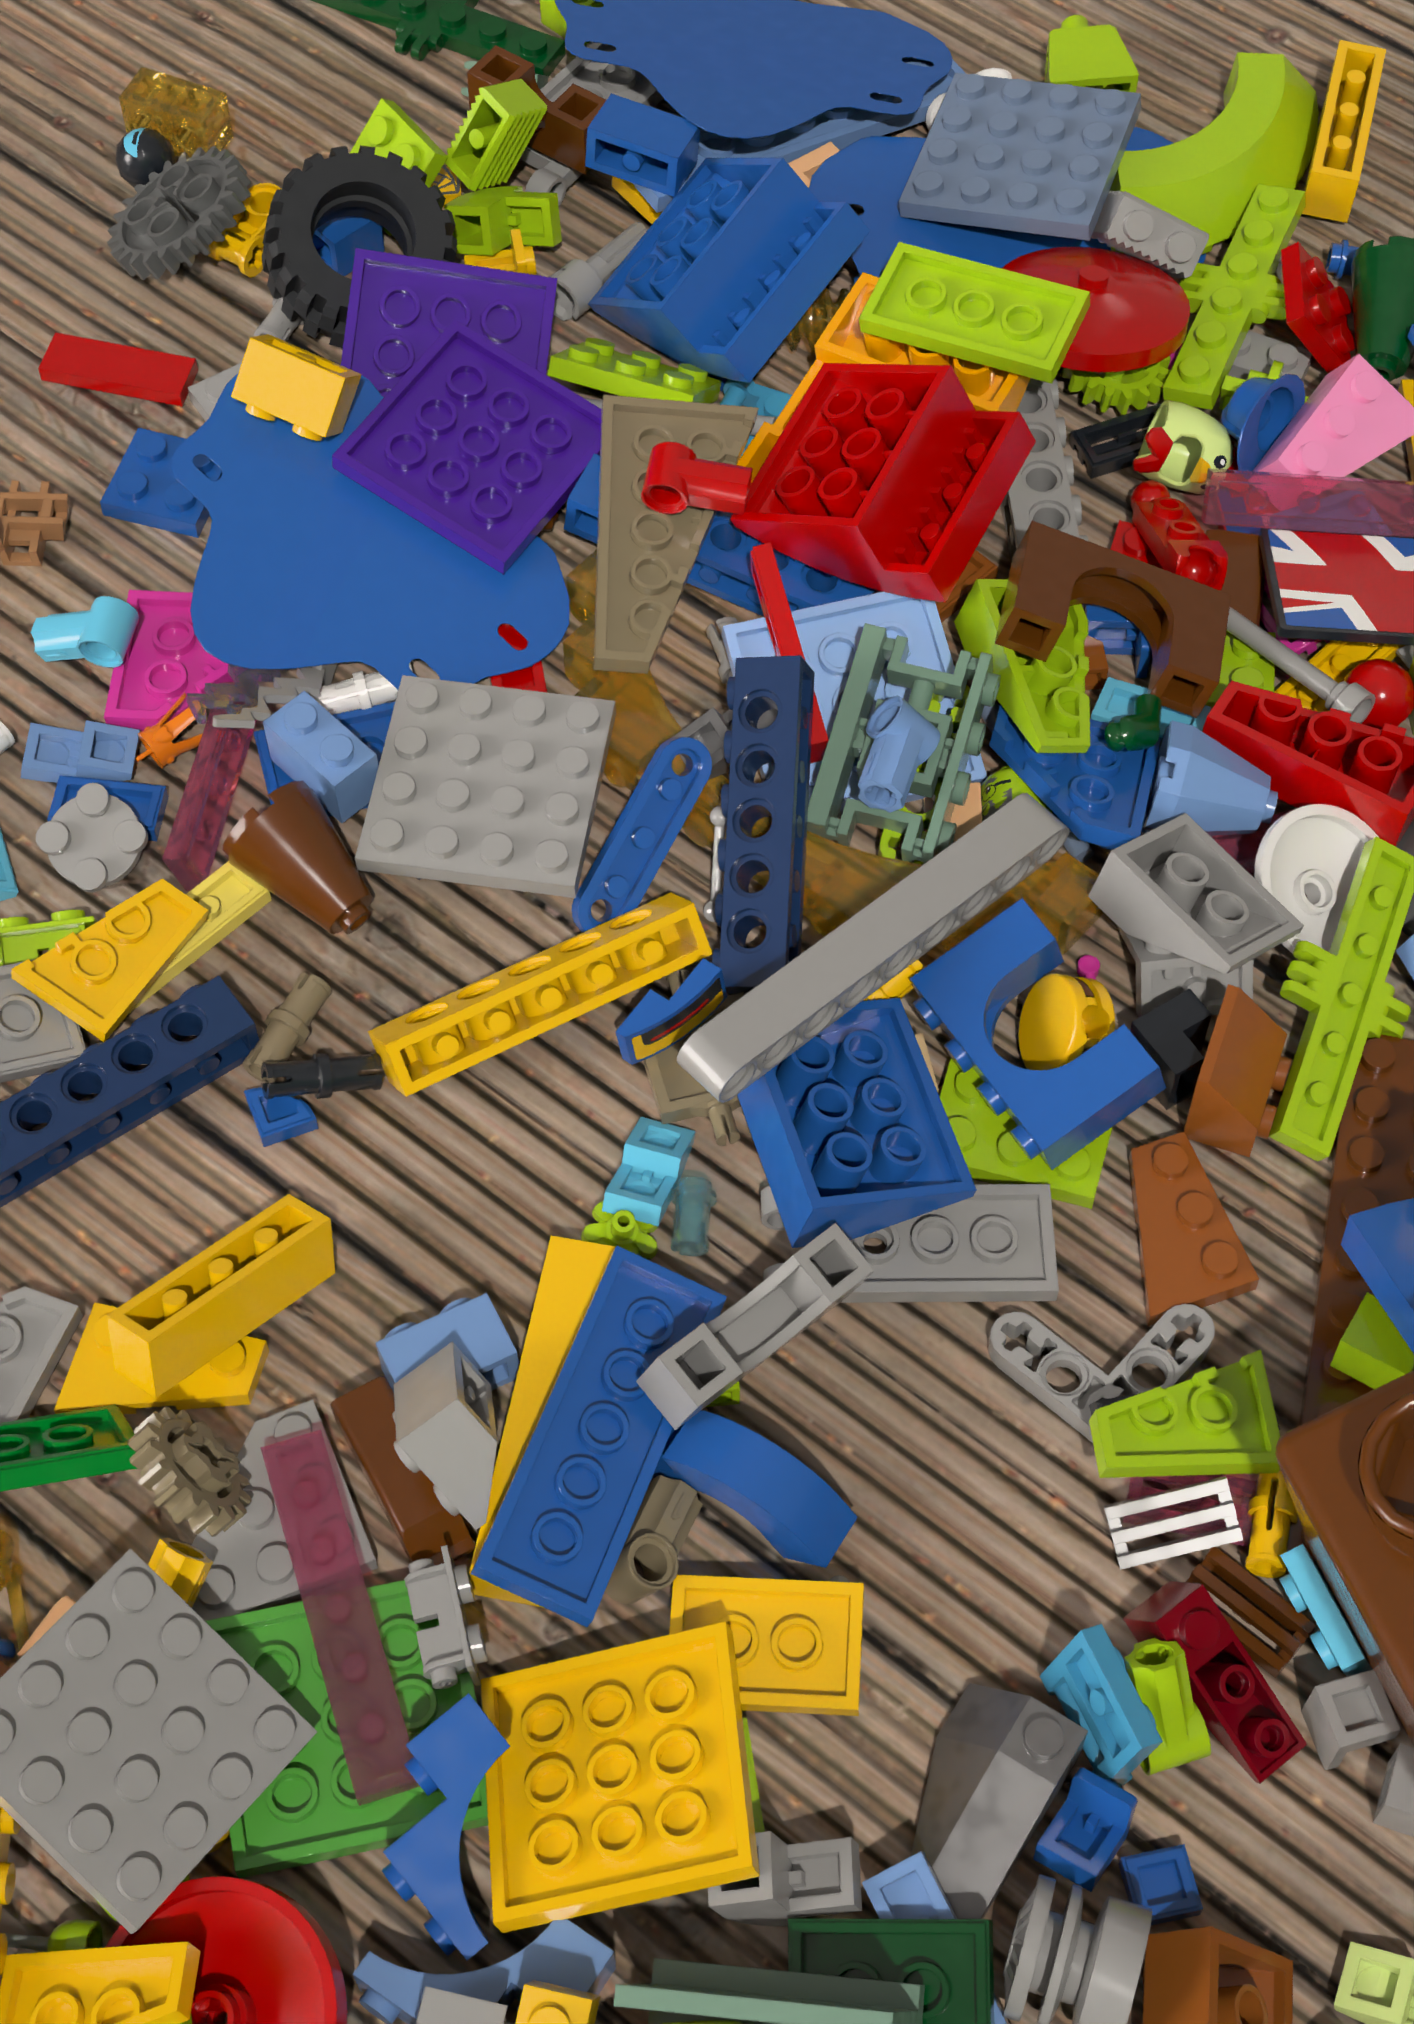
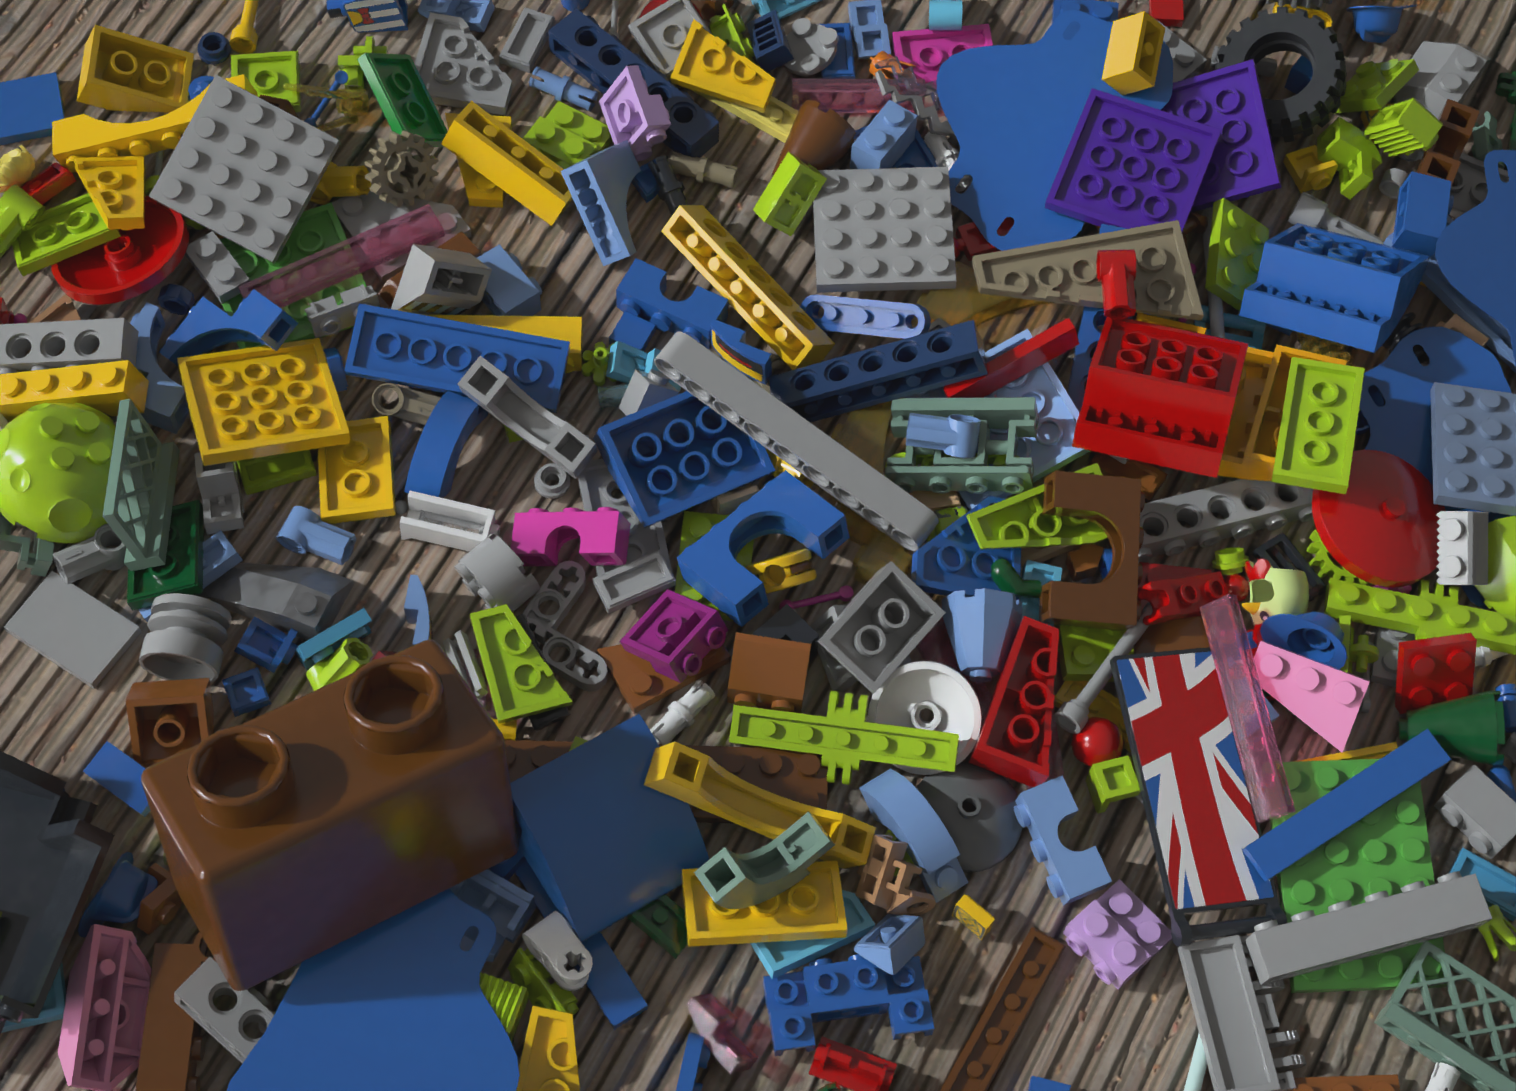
camera: 75 degrees right, 5 degrees up
(60, 1212) = (563, 88): none -> medium blue pin
(103, 880) = (771, 47): none -> dark blue slope
(166, 1216) = (568, 135): none -> lime plate
(175, 1092) = (634, 113): none -> lavender plate
(271, 137) = (1376, 23): none -> blue piece
(300, 1836) = (216, 266): none -> light grey plate
(321, 1166) = (600, 194): none -> medium blue arch
(343, 1924) = (176, 299): none -> dark blue tile
(387, 900) = (789, 194): none -> lime hinge
(401, 76) = (1443, 74): none -> light grey wedge
(514, 1148) = (643, 293): none -> blue arch
(541, 1651) = (336, 368): none -> blue tile
(574, 1182) = (633, 331): none -> blue tile
(724, 1161) = (646, 390): none -> light grey brick
(833, 1326) = (551, 472): none -> light grey plate
(876, 1740) = (307, 532): none -> medium blue piece
(896, 1507) = (447, 522): none -> white window
(945, 1362) = (542, 533): none -> dark pink arch
(1018, 1432) = (496, 574): none -> light grey brick
(1041, 1572) = (418, 611): none -> medium blue slope
(1051, 1236) = (634, 581): none -> light grey tile
(1109, 495) = (1230, 560): none -> lime plate
(1162, 1185) = (676, 635): none -> magenta plate
(1273, 1216) = (682, 712): none -> white pin

